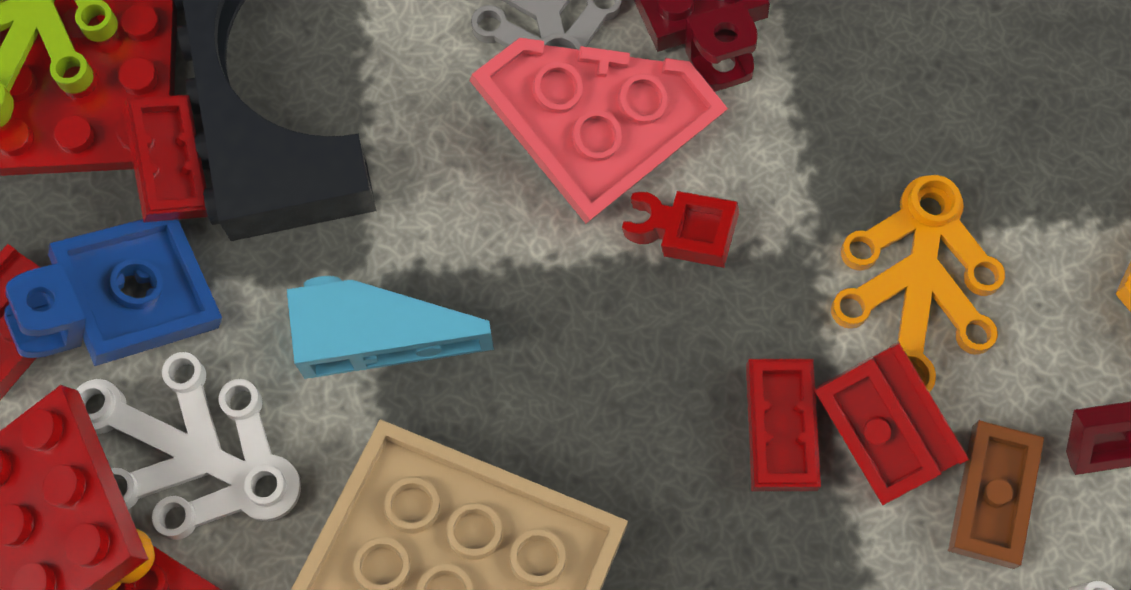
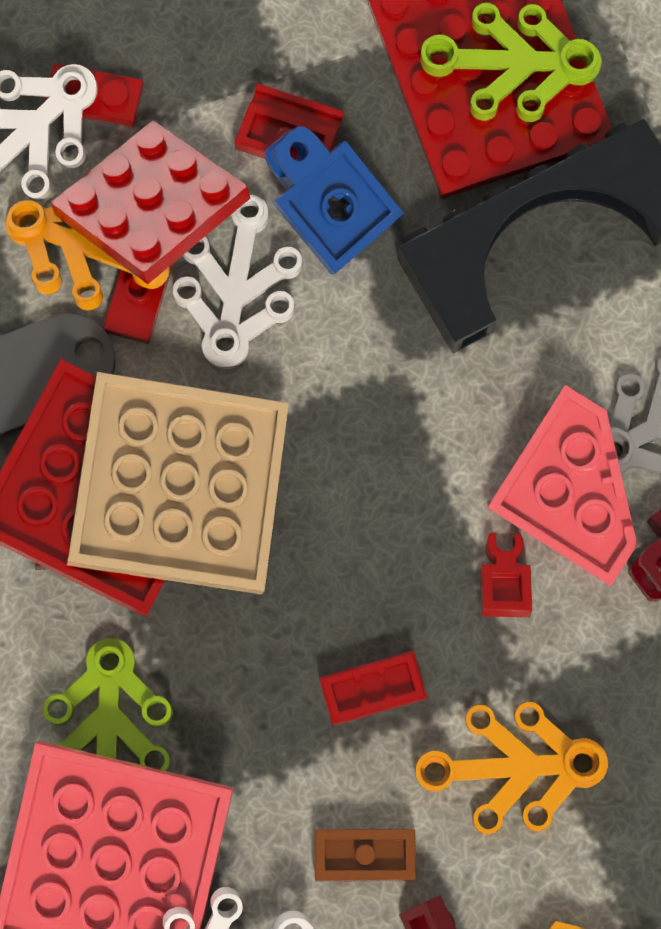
camera: 75 degrees right, 5 degrees up
(165, 157) = (439, 193): red plate -> none
(364, 327) = (354, 367): medium azure slope -> none
(891, 423) = (393, 763): red plate -> none

